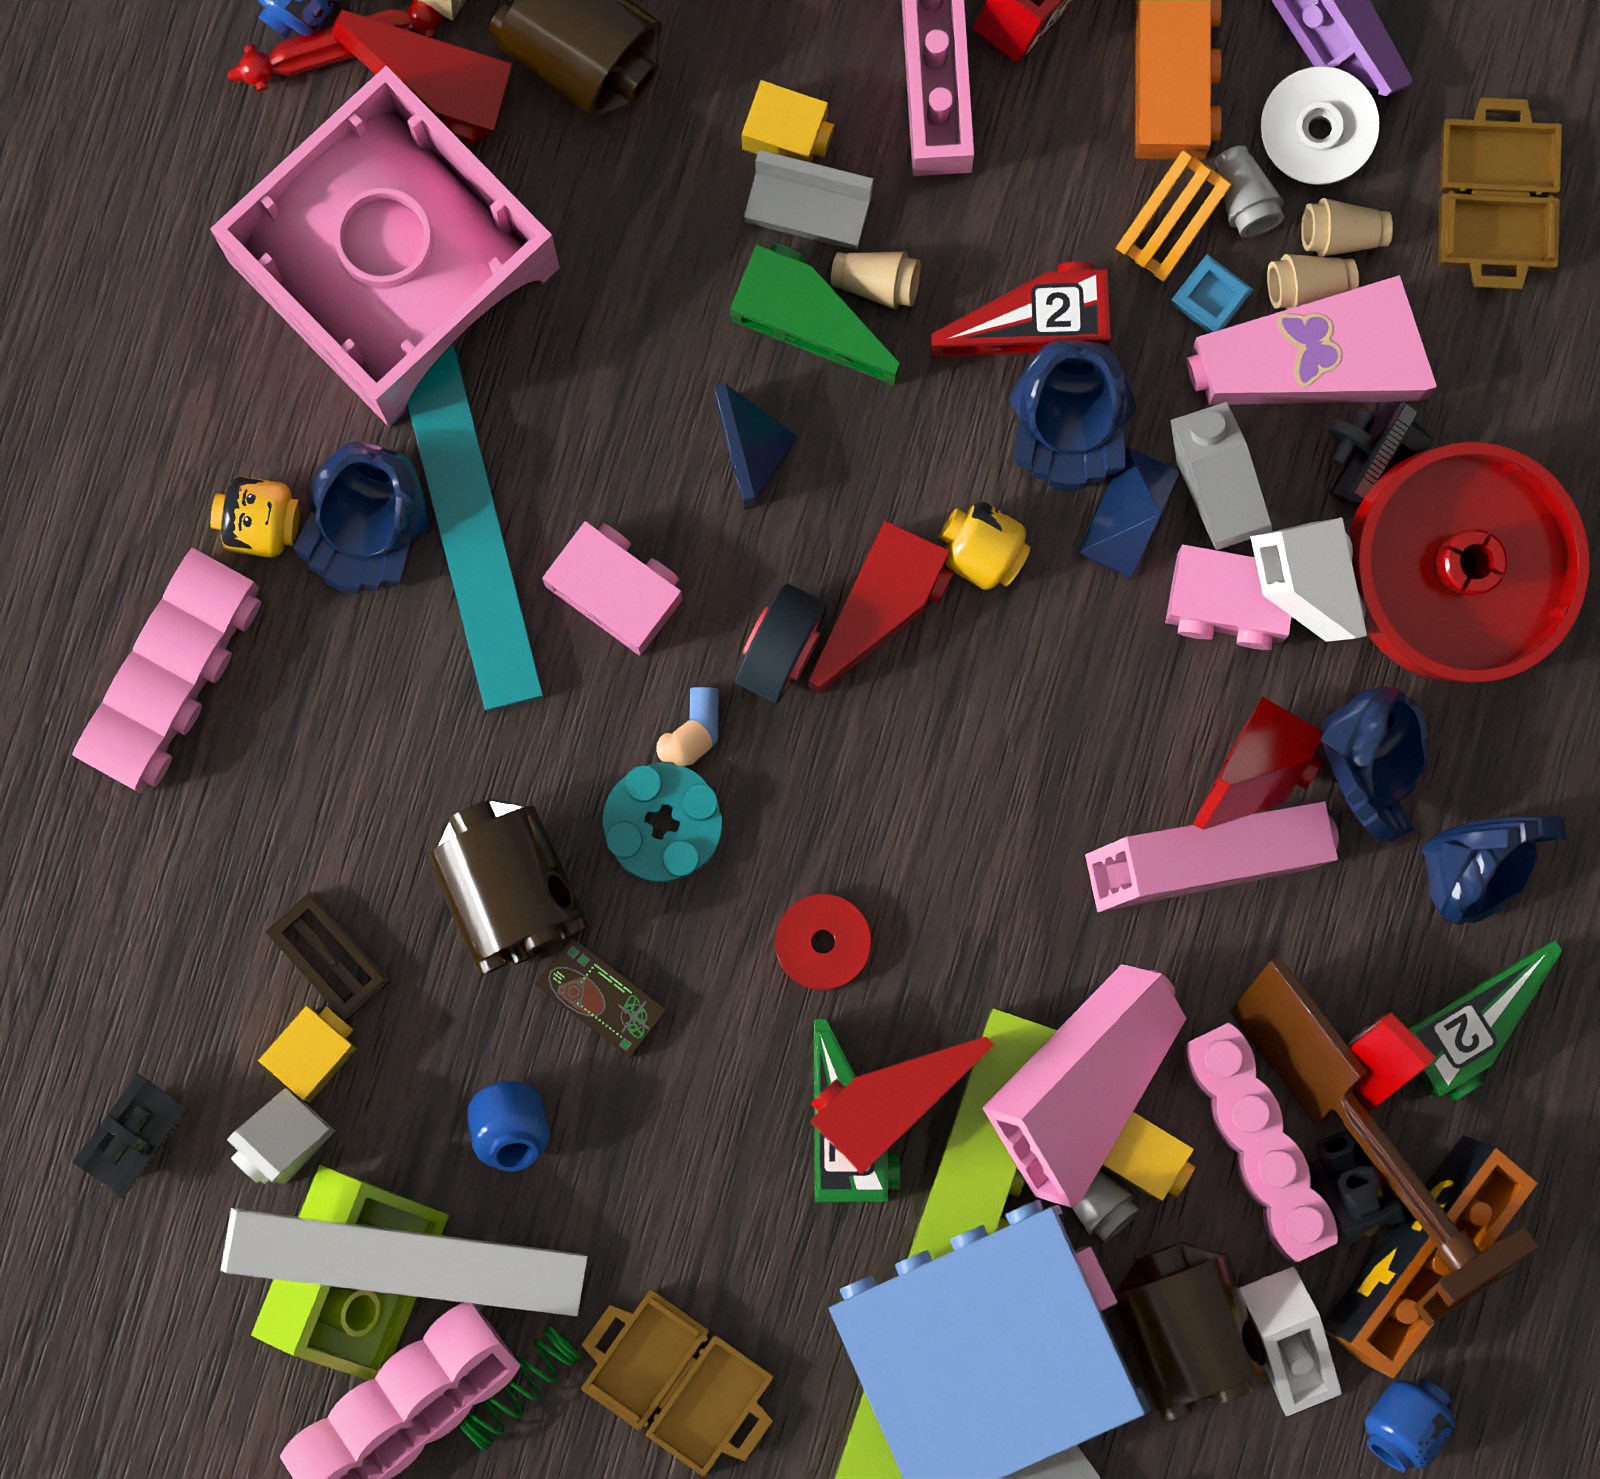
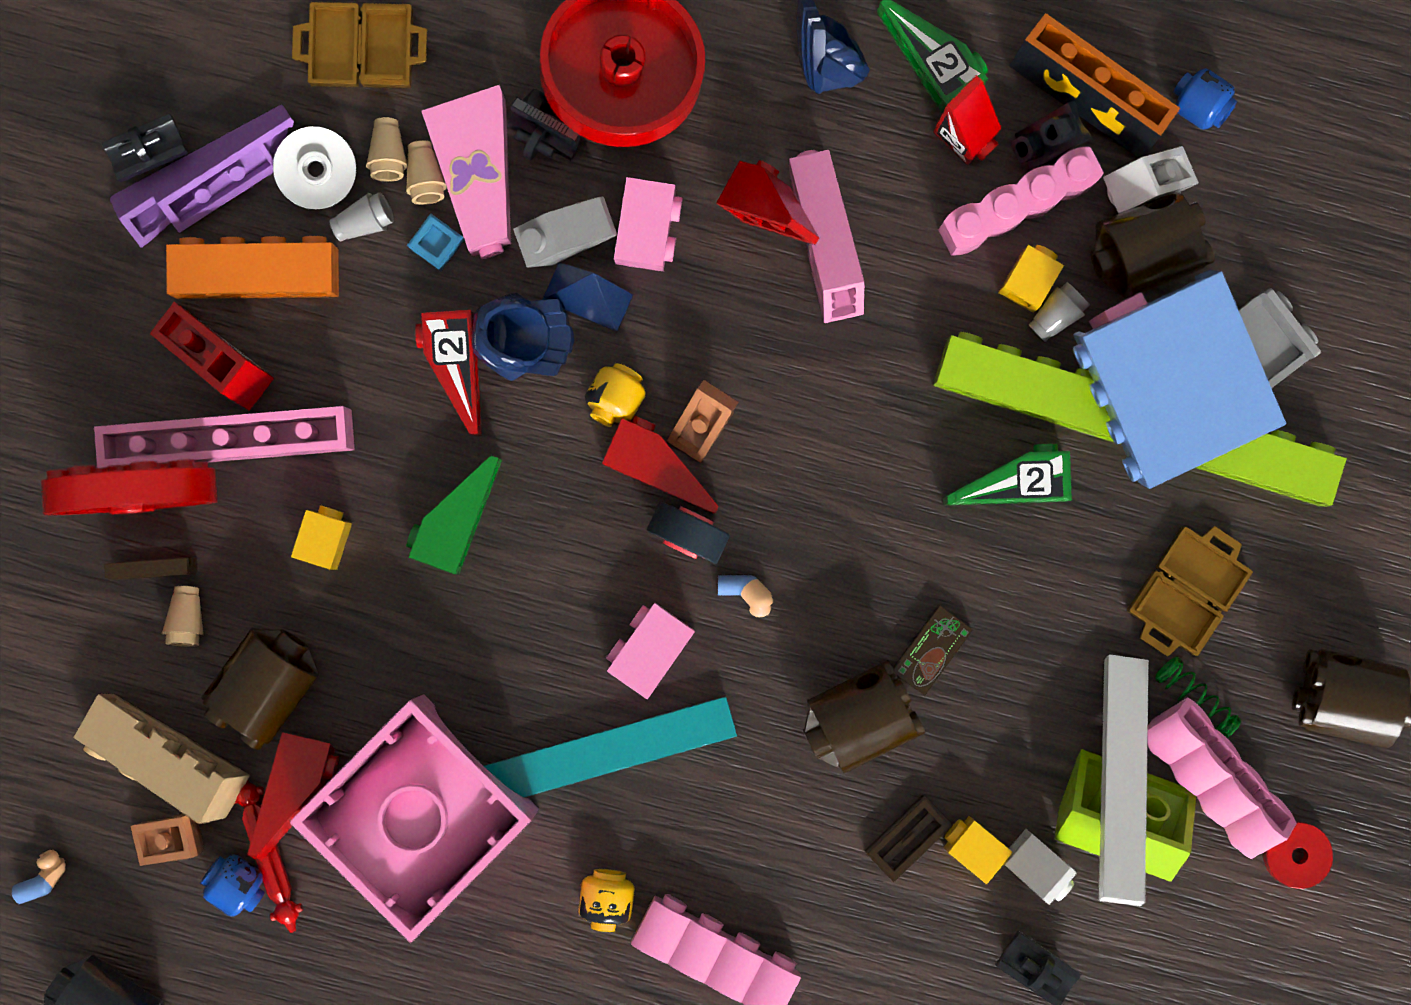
camera: 90 degrees left, 5 degrees up
(362, 518) = (606, 825): dark blue hair -> none
(508, 1125) = (1023, 710): blue head -> none
(646, 792) = (799, 591): teal plate -> none
(753, 441) = (546, 555): dark blue slope -> none
(809, 200) = (374, 522): light grey panel -> none
(815, 915) = (908, 496): red piece -> none
(878, 276) = (427, 472): tan cone -> none
(884, 1104) = (1007, 452): red slope -> none
(943, 670) = (702, 421): none -> nougat slope
(1085, 1083) = (985, 317): bright pink slope -> none
(1145, 256) = (409, 287): light orange tile -> none
(1312, 577) = (635, 167): white slope -> none
(1322, 1078) = (979, 155): reddish brown piece -> none
(1377, 756) = (757, 124): dark blue hair -> none

